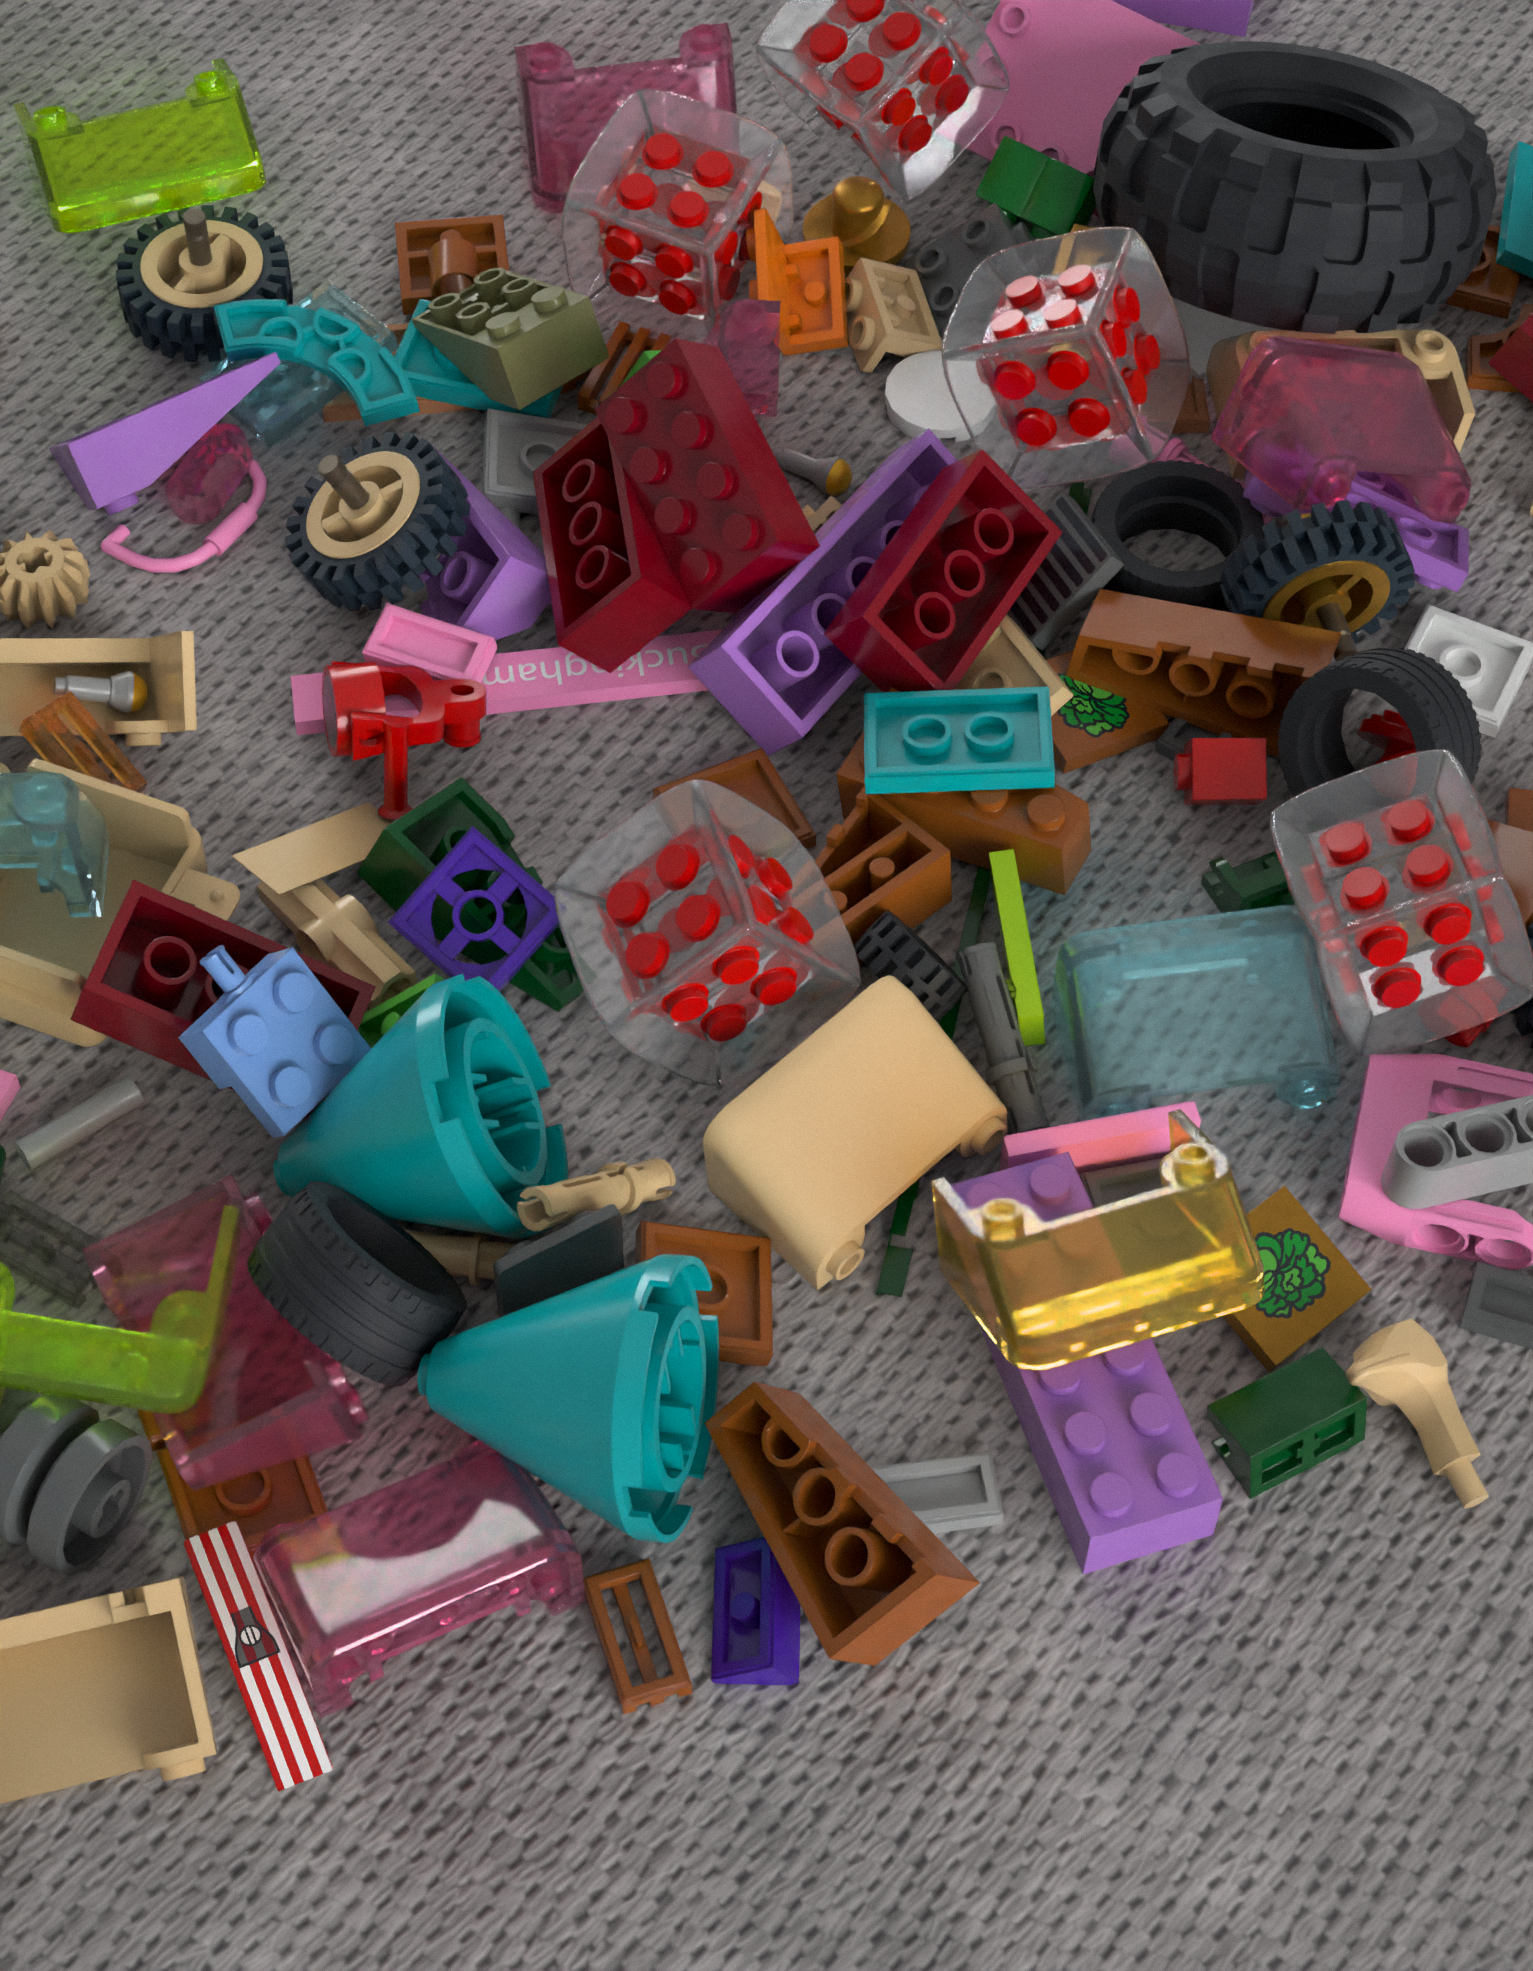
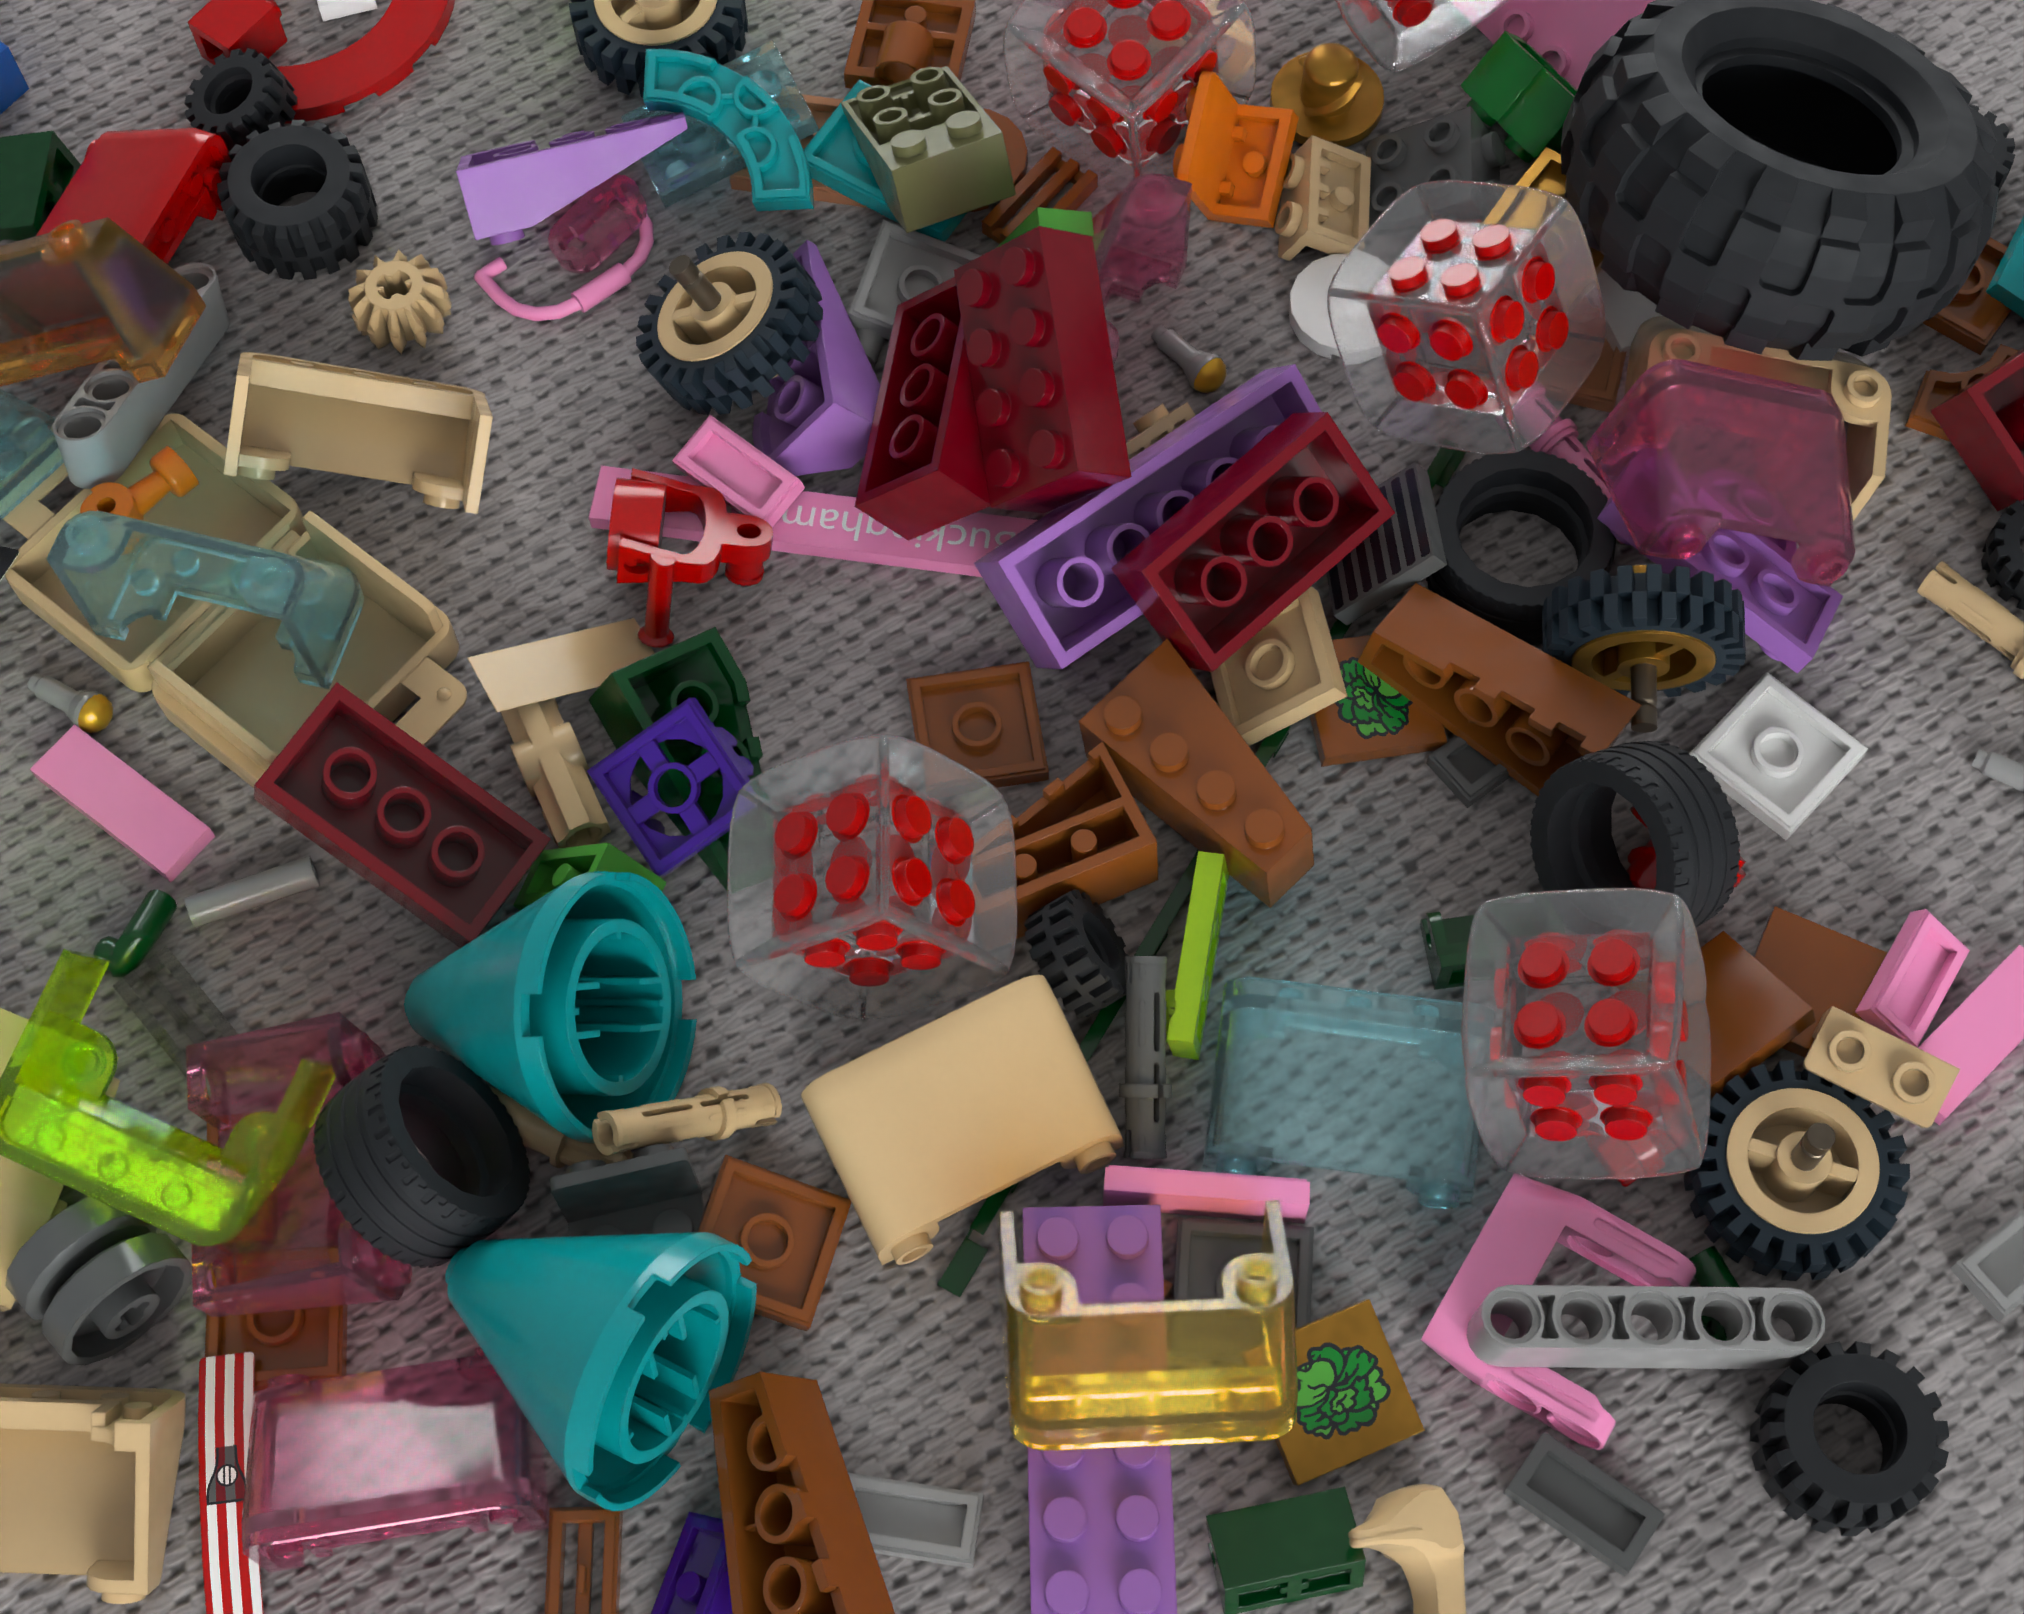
camera: 20 degrees right, 10 degrees up
(91, 731) = (353, 457): clear orange tile -> none
(123, 691) = (436, 444): light grey piece -> none
(273, 1037) = (423, 880): medium blue plate -> none
(958, 740) = (1204, 723): teal tile -> none
(1222, 771) = (1476, 814): red brick -> none

